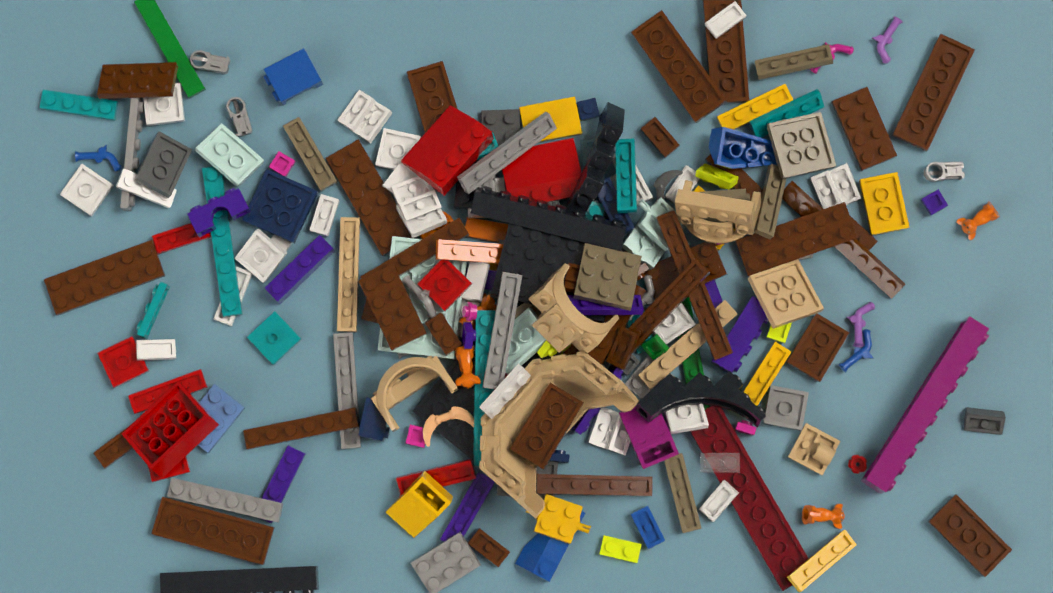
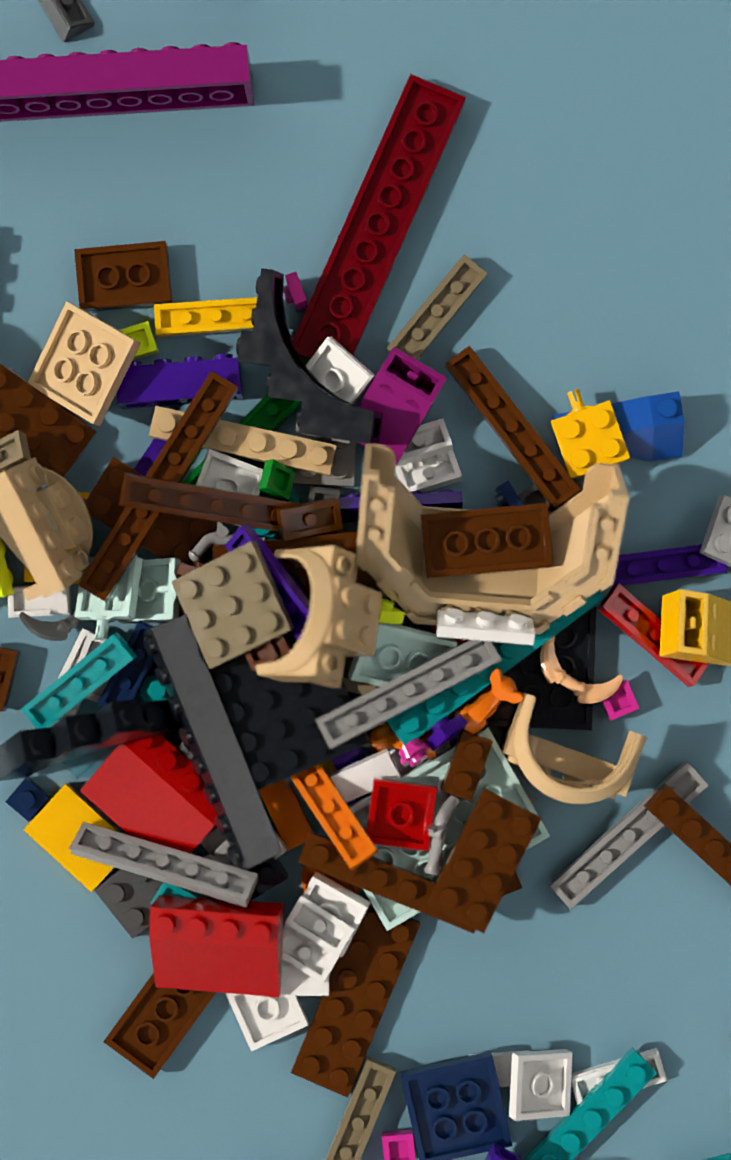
camera: 130 degrees left, 5 degrees up
(274, 338) = (631, 981): teal plate -> none
(299, 269) = (520, 1018): dark purple brick -> none
(324, 215) = (424, 1040): white plate -> none
(348, 274) = (477, 949): tan plate -> none
(365, 116) = (253, 1086): white slope -> none
(373, 424) = (653, 771): dark blue slope -> none
(489, 547) = (688, 502): reddish brown plate -> none
(620, 549) = (564, 338): neon yellow plate -> none
(647, 527) = (512, 322): blue plate -> none
(719, 462) = (364, 290): clear plate -> none
(719, 500) = (412, 257): white tile -> none
(786, 407) = (230, 260): light grey plate -> none
(811, 514) = (343, 130): orange animal -> none
(814, 449) = (257, 187): tan plate -> none
(821, 561) = (393, 73): yellow plate -> none
(857, 469) = (235, 113): red plate -> none
(858, 323) = (53, 246): medium lavender piece -> none
(859, 352) = (91, 220): blue piece -> none

